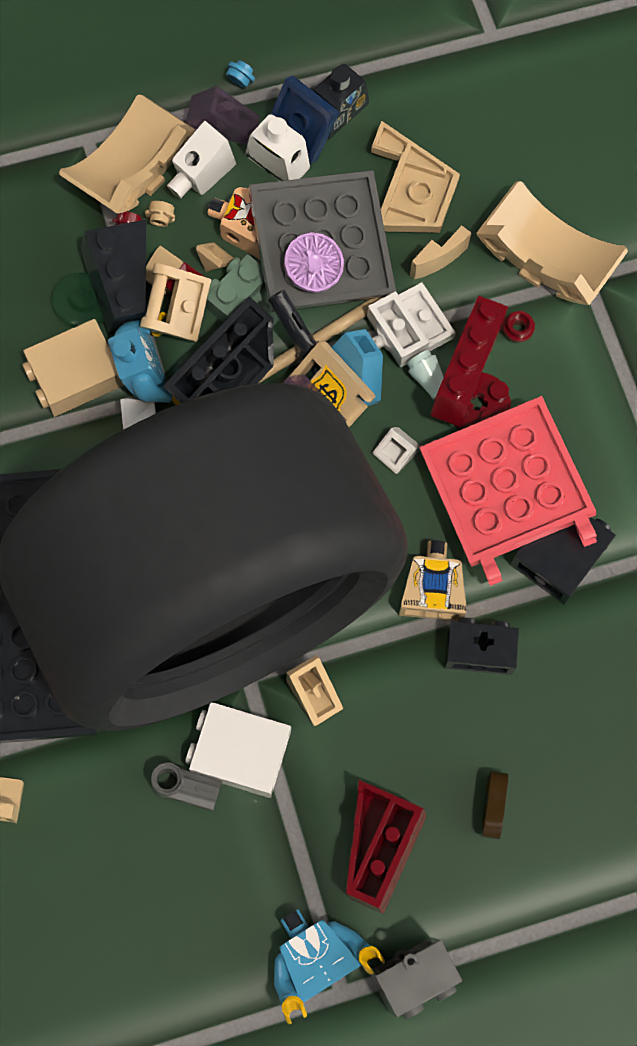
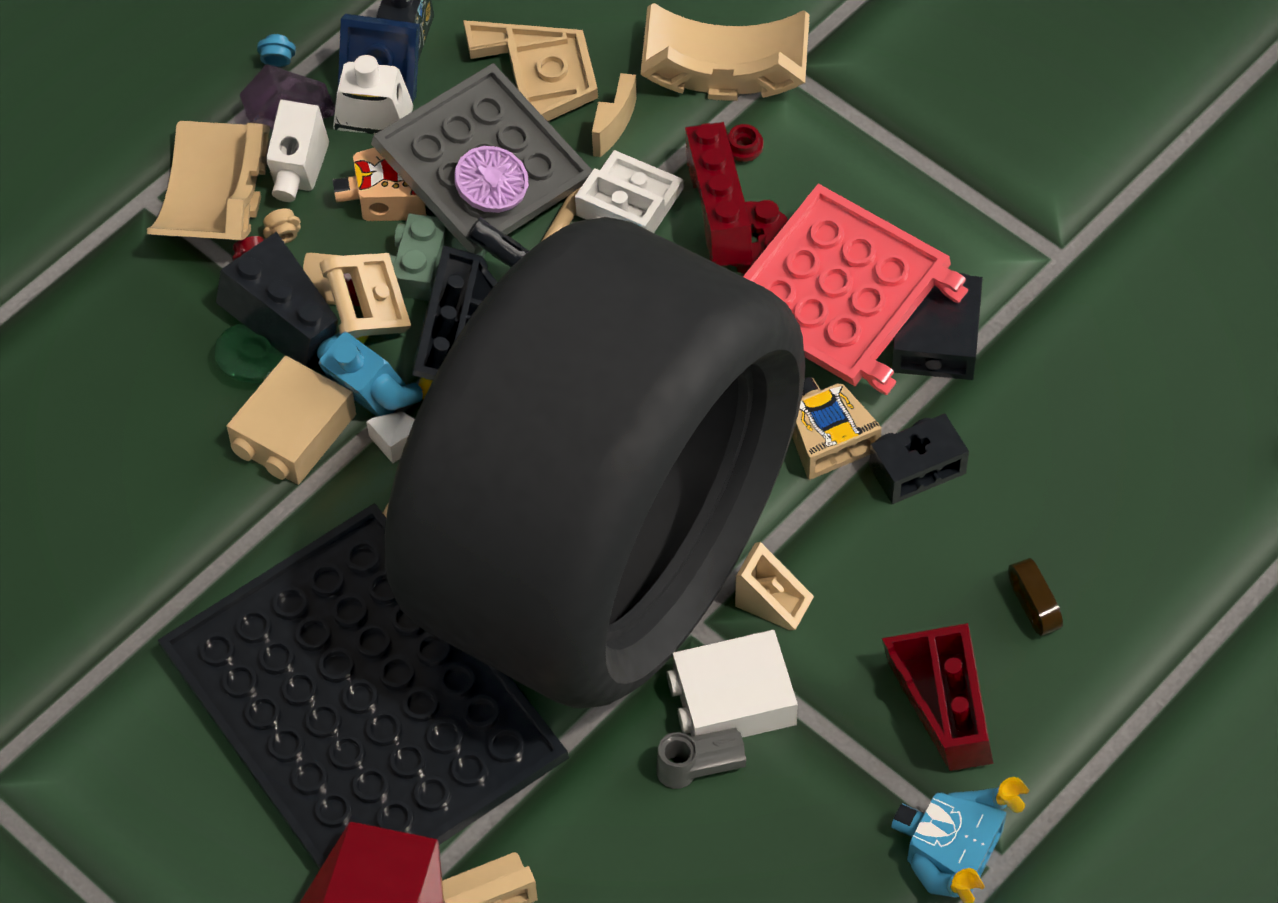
camera: 25 degrees left, 15 degrees down
(213, 256) = (370, 240): tan slope -> none
(421, 975) = (1070, 791): dark grey brick -> none
(426, 372) = (681, 231): light aqua cone -> none

